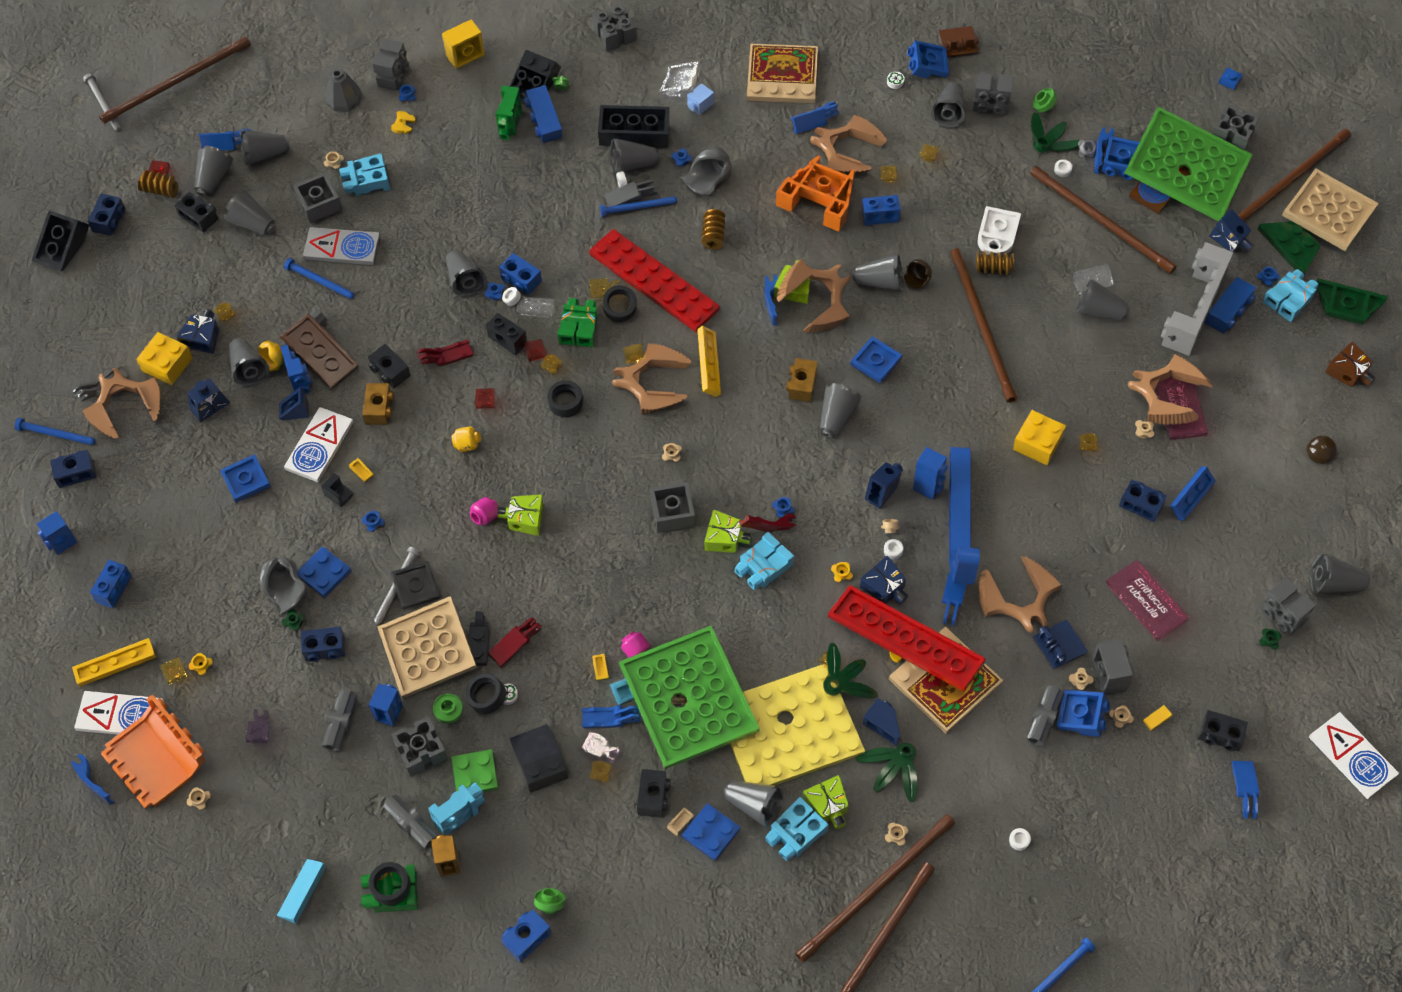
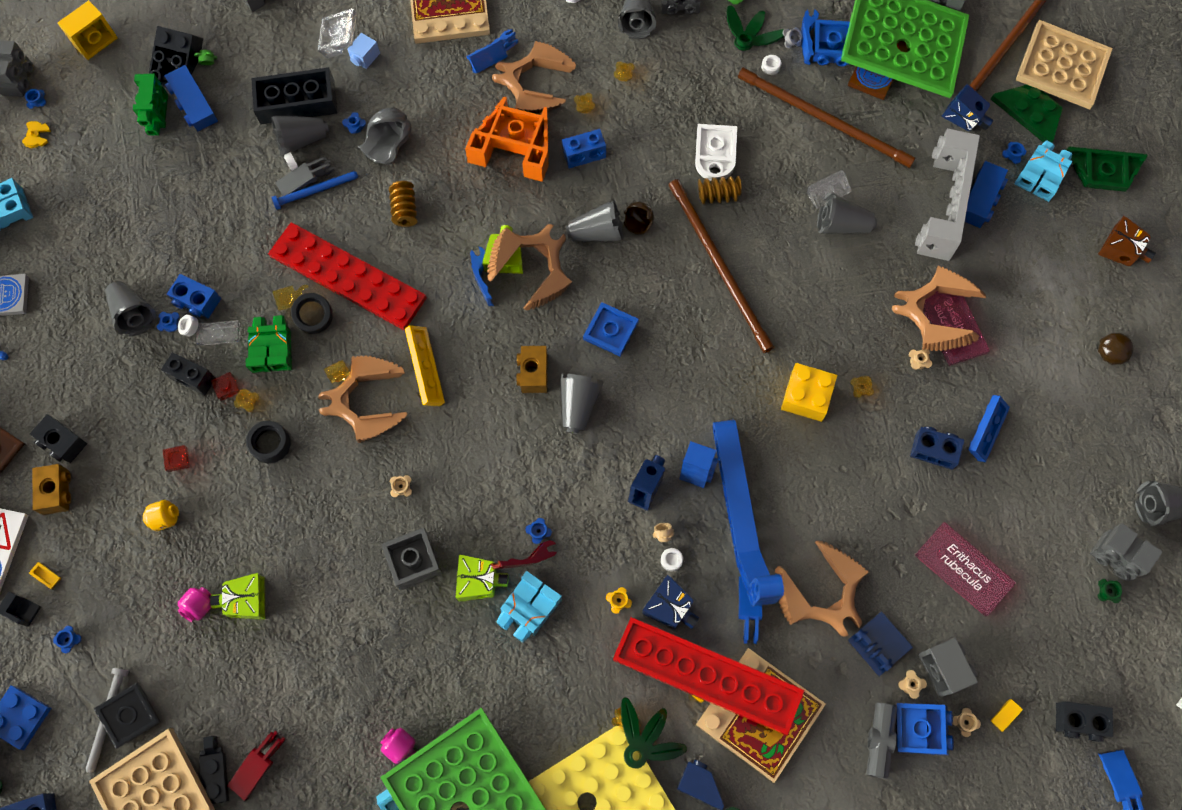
camera: 10 degrees left, 10 degrees up
(446, 355) = (123, 411): dark red arm -> none
(600, 667) = (361, 777): yellow piece -> none

